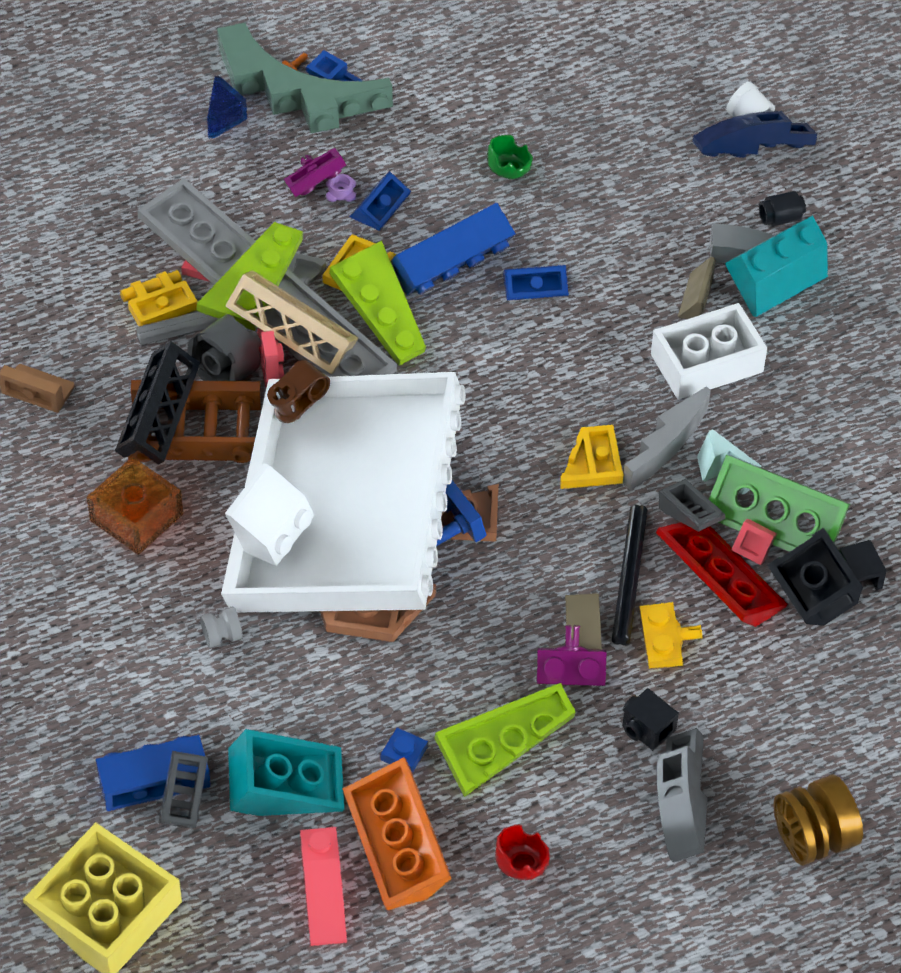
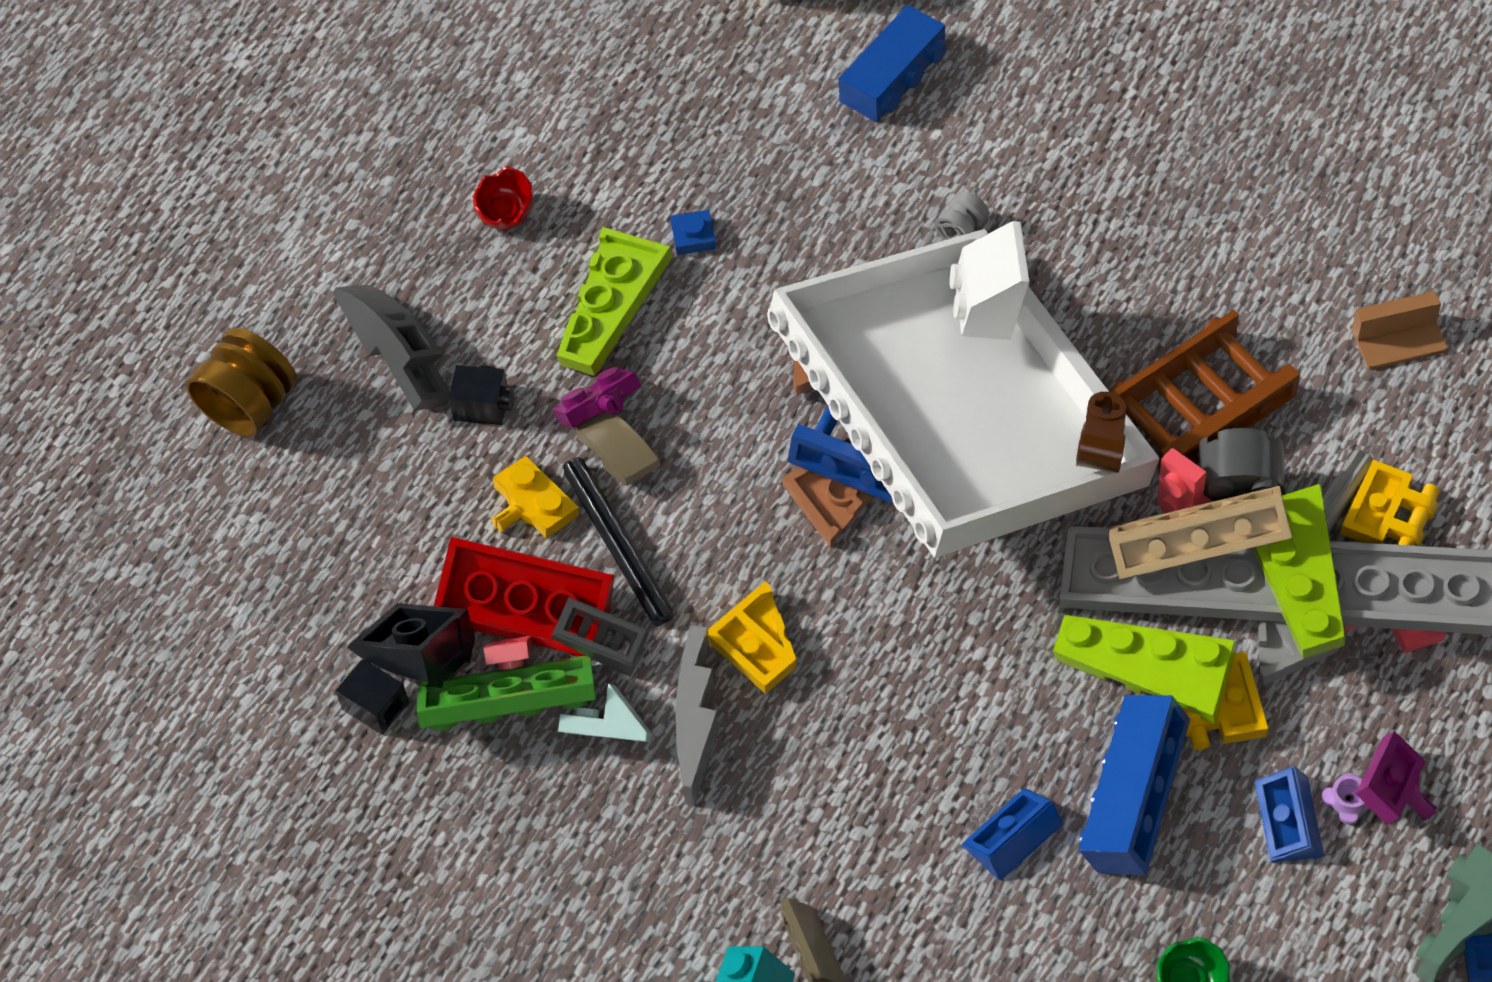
camera: 150 degrees right, 5 degrees up
(135, 505) = (1157, 262): clear orange brick -> none
(153, 396) = (1249, 346): black fence -> none
(167, 802) = (840, 47): dark grey slope -> none
(284, 775) = (773, 133): teal slope -> none
(323, 886) = (663, 76): coral slope -> none
(397, 835) = (635, 151): orange slope -> none
(708, 351) = (727, 847): white brick -> none

